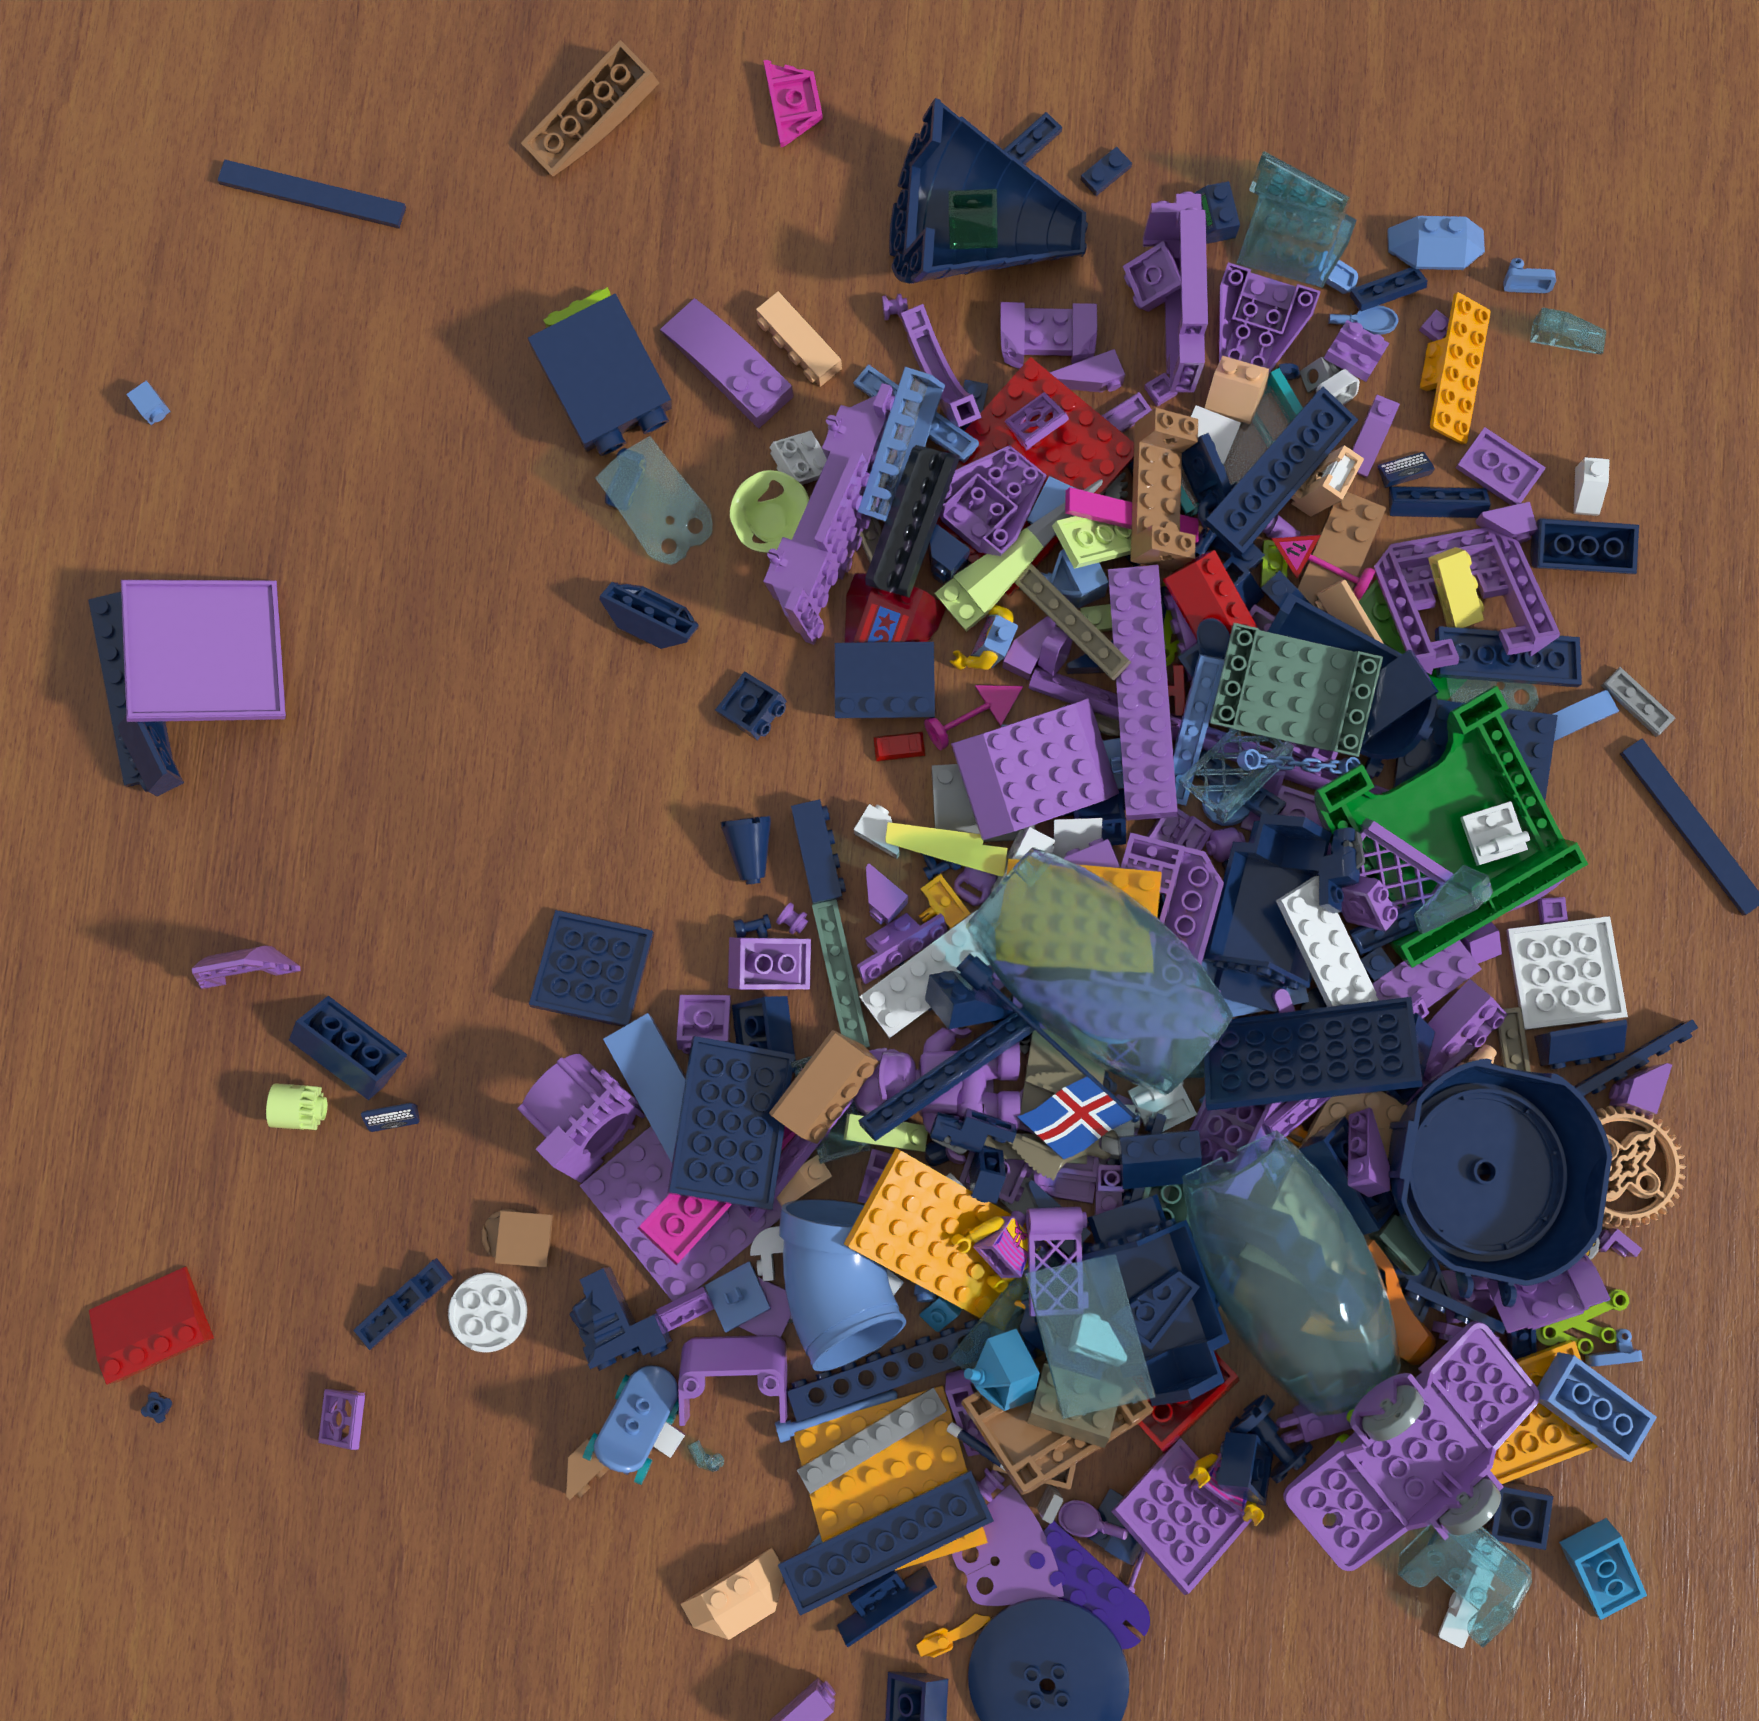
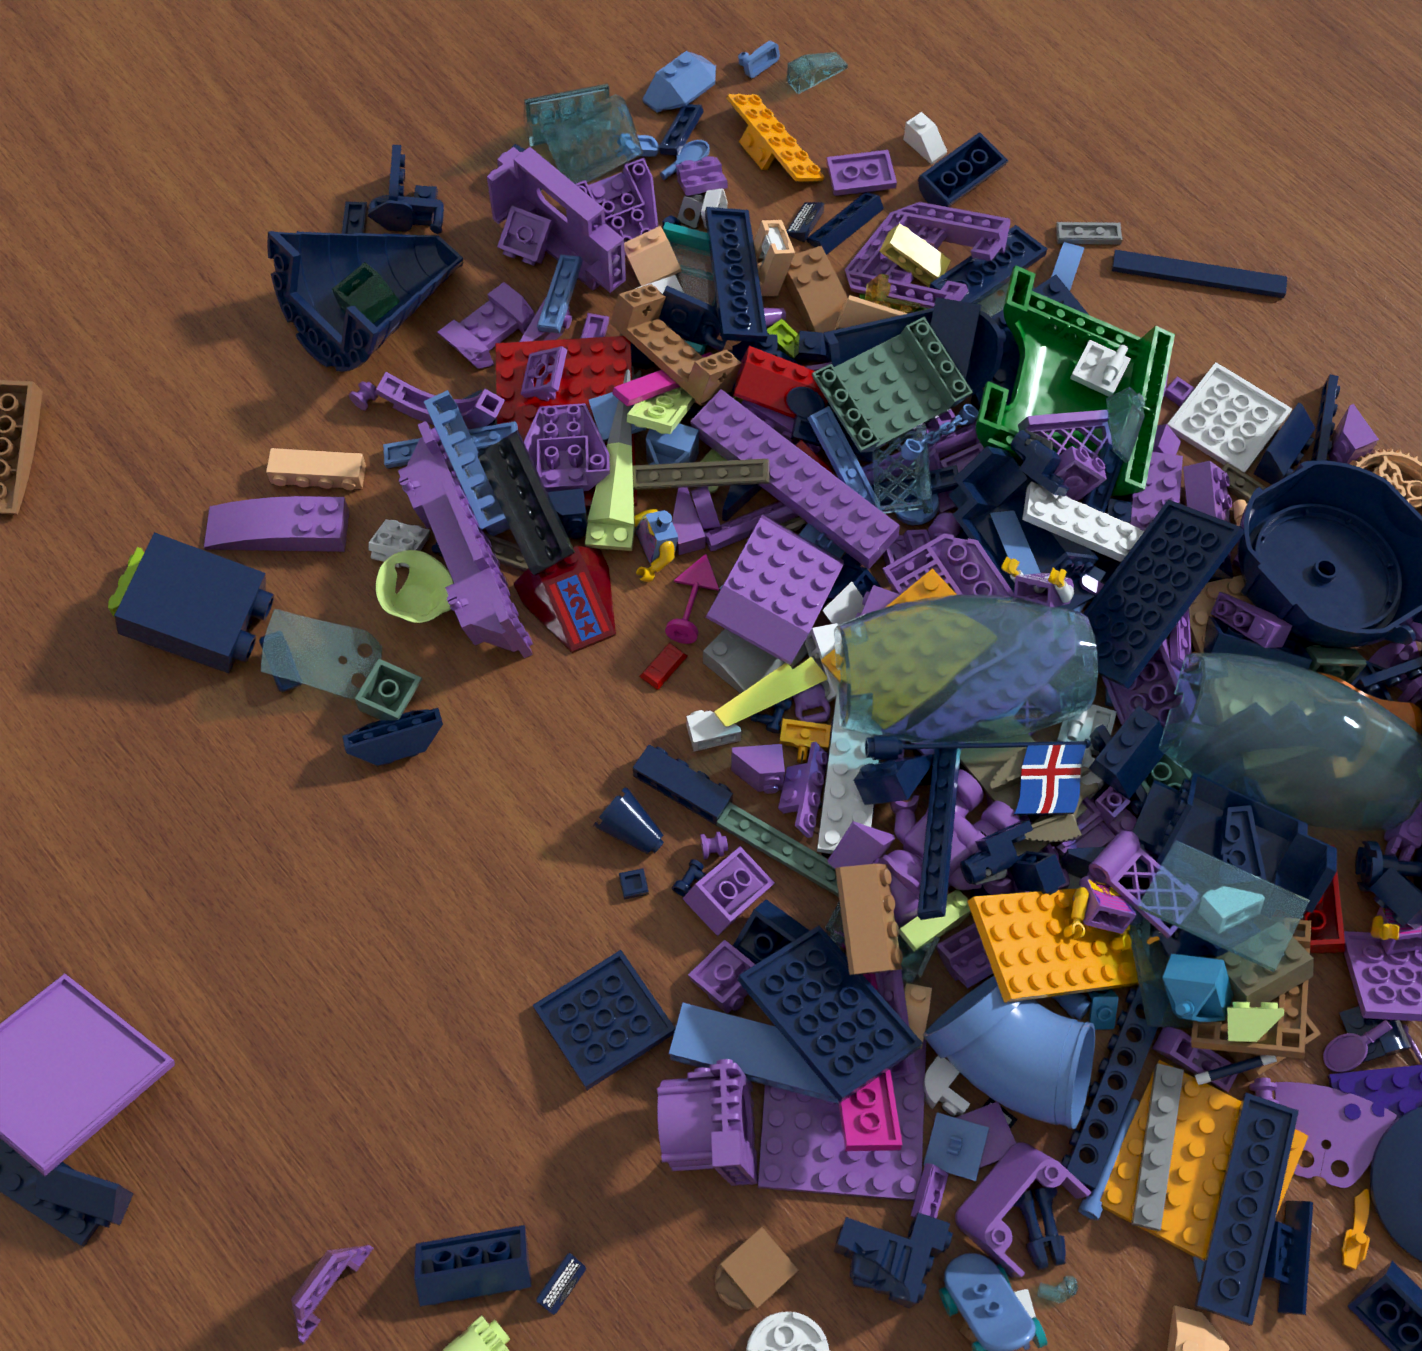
camera: 50 degrees left, 15 degrees down
(676, 576) = (387, 691): none -> sand green slope
(711, 891) = (633, 883): none -> dark blue tile
(736, 1419) = (1052, 1239): none -> dark blue piece
(752, 706) = (532, 730): dark blue plate -> none
(793, 100) = (155, 328): dark pink wing -> none
(884, 680) = (610, 628): dark blue slope -> none
(885, 1029) = (860, 846): none -> medium lavender slope
(1014, 1431) = (1251, 1023): none -> yellowish green slope
(1050, 1504) = (1320, 1056): light grey tile -> none
(1071, 160) = (395, 209): none -> dark blue plate
(1126, 357) = (559, 294): none -> medium blue tile
(1160, 389) = (599, 301): medium lavender tile -> none
(1220, 972) = (1045, 588): none -> torso
(1254, 914) = (1015, 541): none -> medium blue sticker
(1298, 550) = (795, 313): dark pink piece -> none
(1374, 432) = (759, 204): medium lavender slope -> none
(1380, 595) = (880, 288): none -> clear yellow bracket
(1435, 326) = (733, 128): medium lavender plate -> none
(1513, 521) = (902, 194): medium lavender slope -> none

